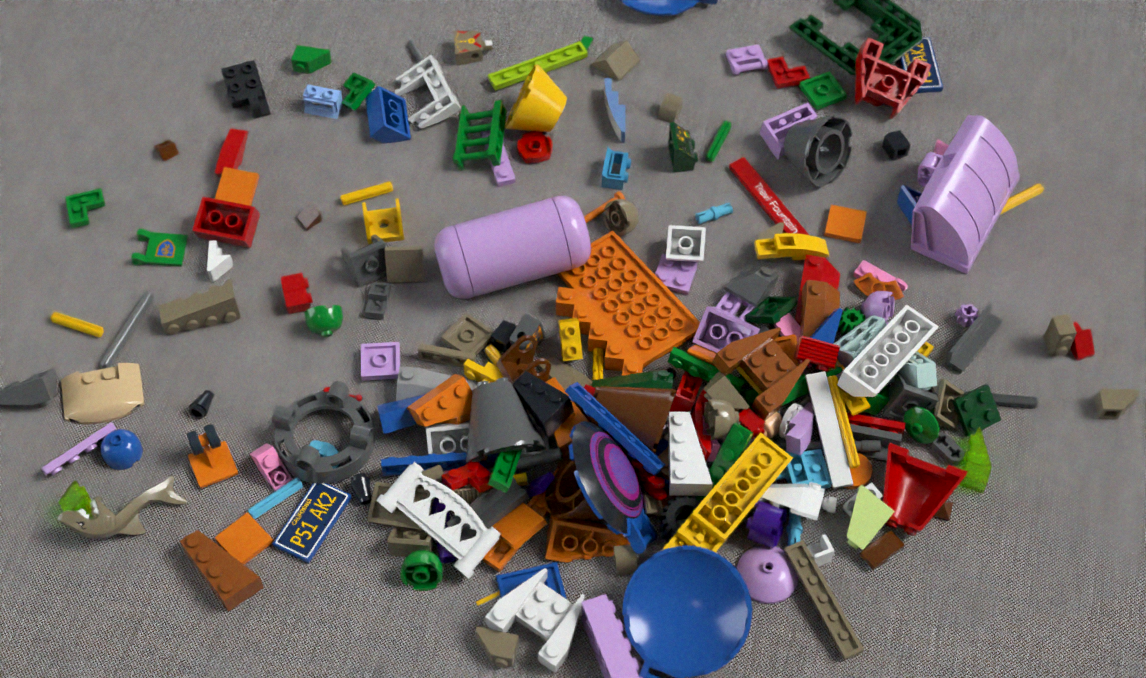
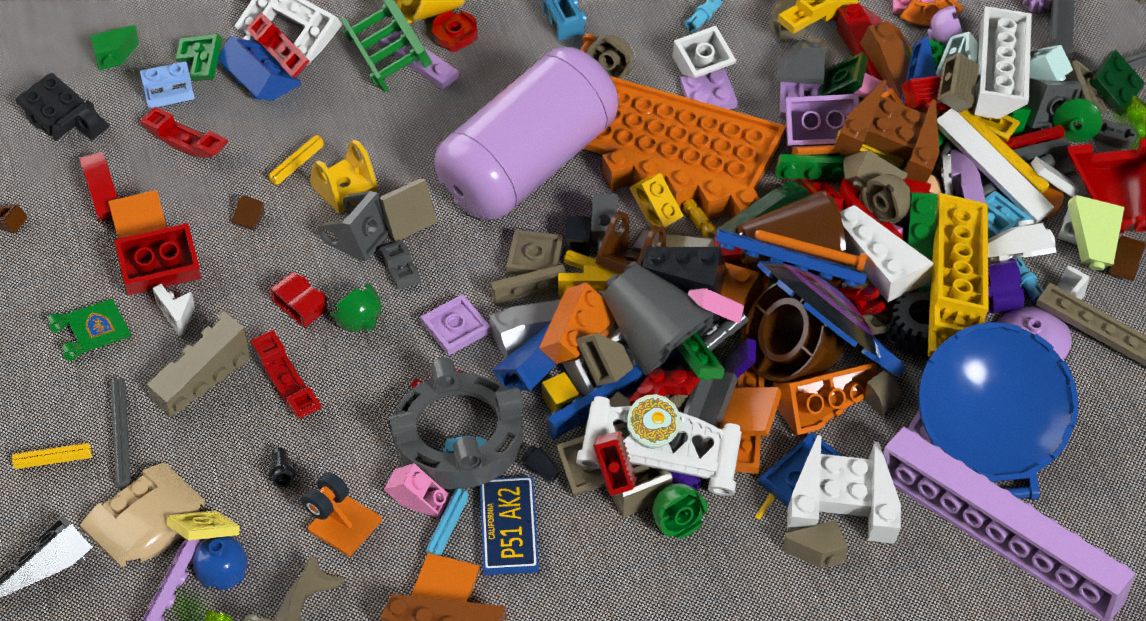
camera: 30 degrees left, 5 degrees down
(122, 419) = (202, 525): none -> light yellow plate
(249, 342) = (284, 376): none -> red slope
(307, 141) = (181, 137): none -> red slope
(394, 515) = (615, 463): none -> red brick
(408, 443) = (558, 391): none -> yellow panel
(411, 105) = (278, 44): none -> red slope
(440, 499) = (653, 421): none -> tile
(444, 438) = (604, 357): none -> dark tan slope
(538, 438) = (717, 304): none -> bright pink slope
(661, 455) = (813, 249): none -> orange bar
(837, 355) = (959, 82): none -> dark tan brick
(870, 460) = (1054, 177): none -> white tile

